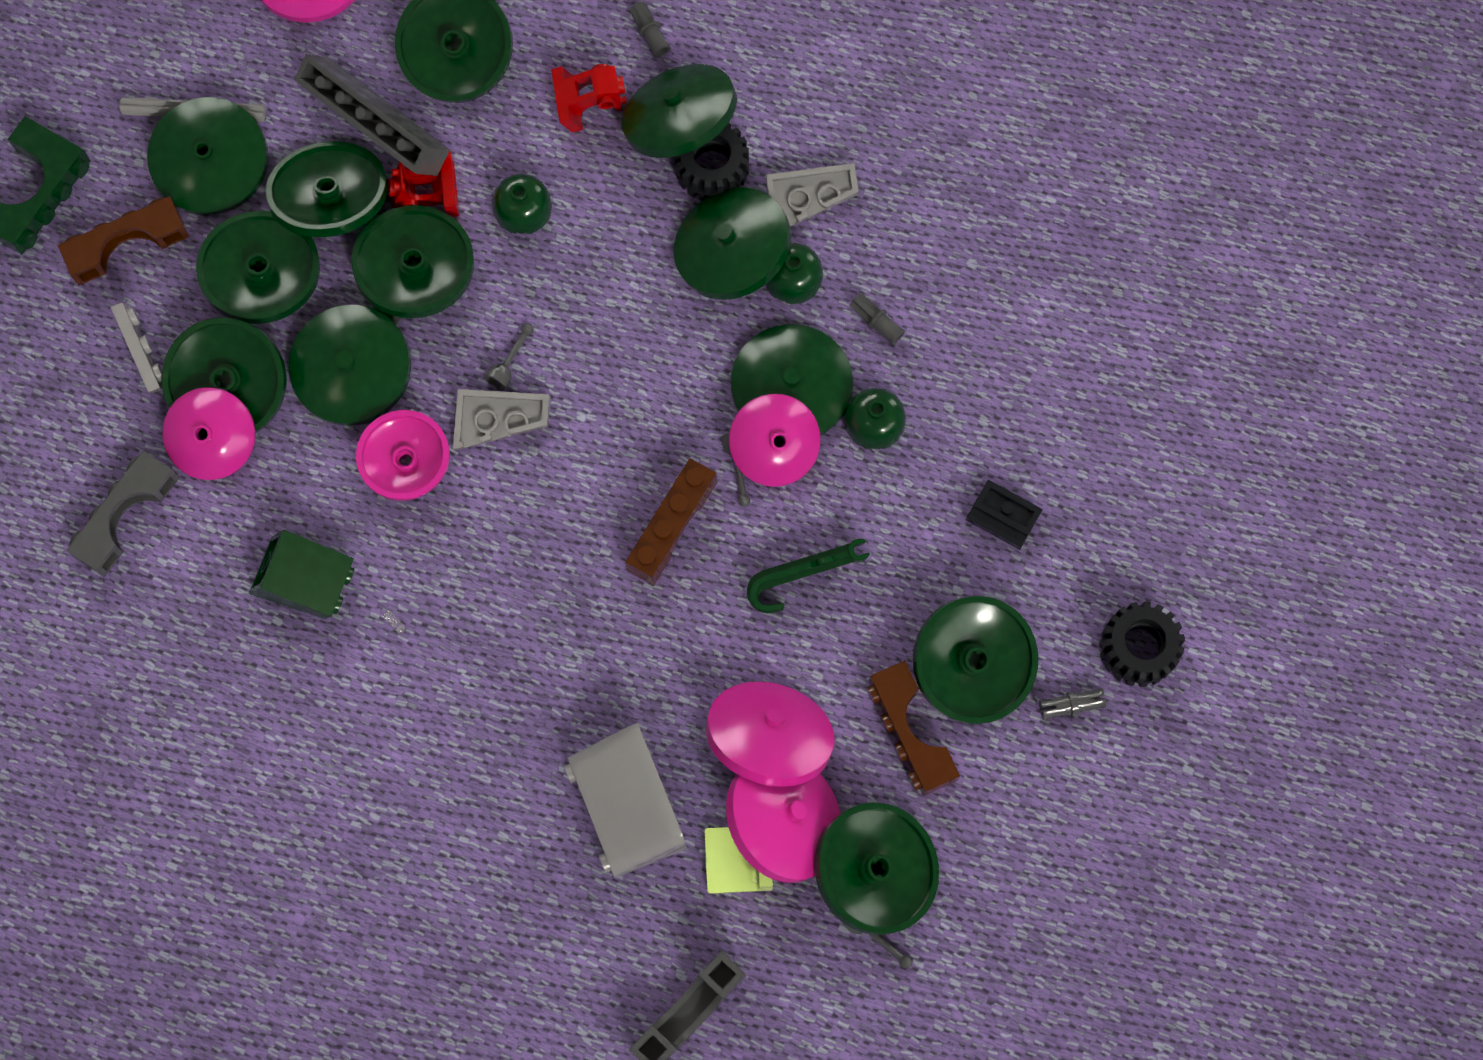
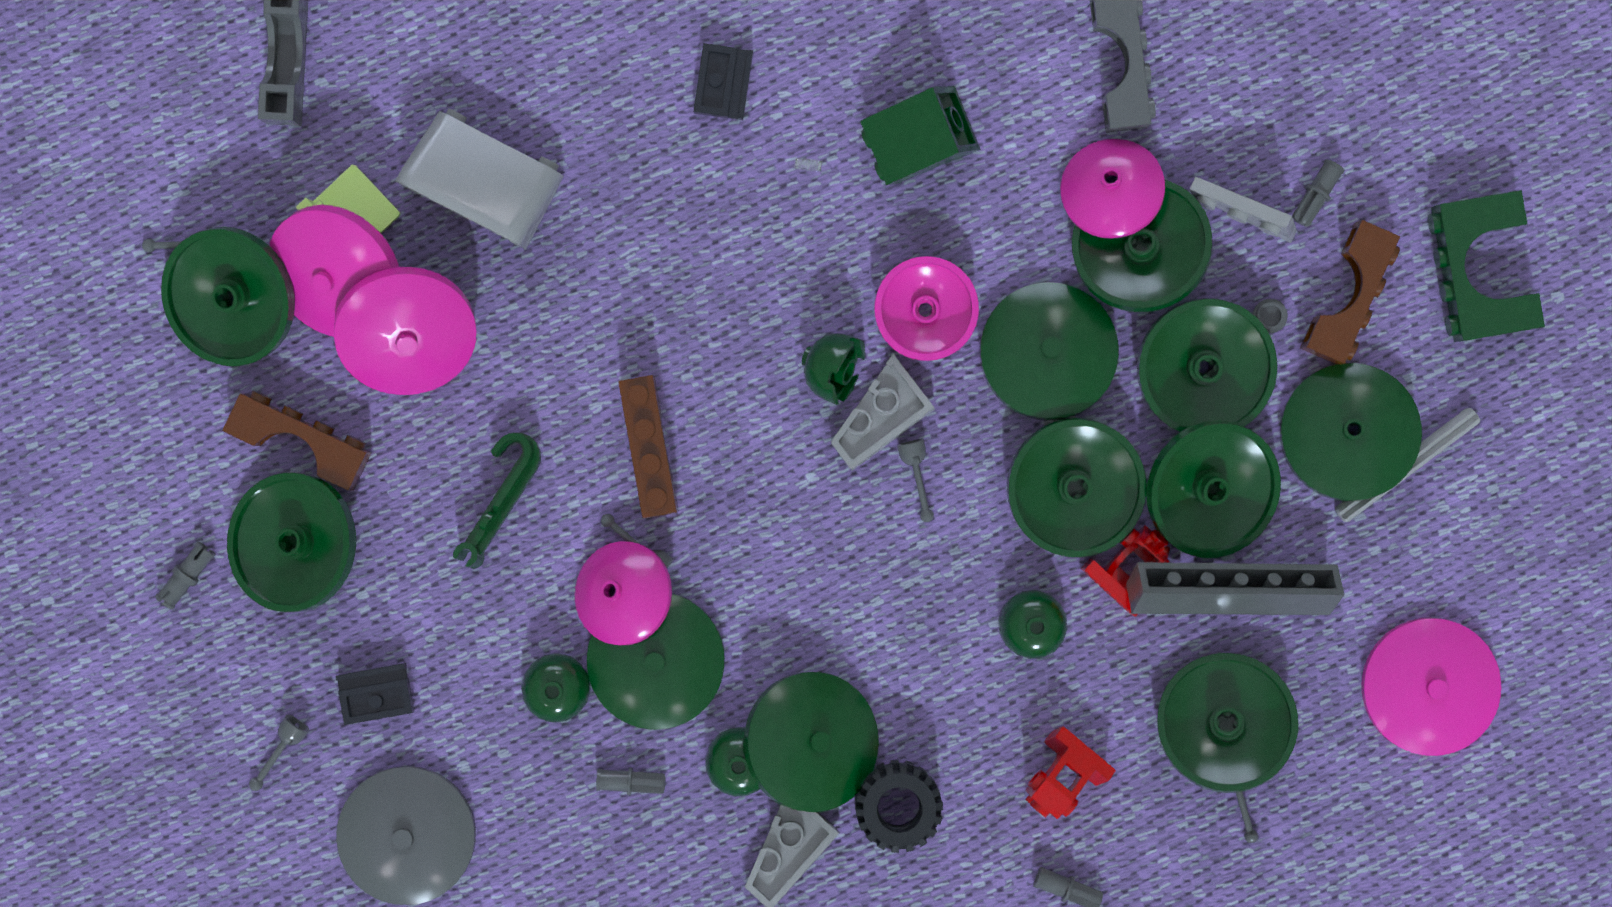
camera: 135 degrees right, 15 degrees up
(82, 321) = (1317, 193): none -> dark grey axle
(185, 270) = (1271, 314): none -> dark grey plate
(399, 728) = (723, 81): none -> black plate
(500, 472) = (832, 365): none -> dark green cylinder
(679, 110) = (964, 826): dark green dish -> none
(1061, 407) = (406, 835): none -> dark grey dish
(1087, 535) = (289, 735): none -> dark grey hinge
(1126, 664) = (136, 679): black tyre -> none

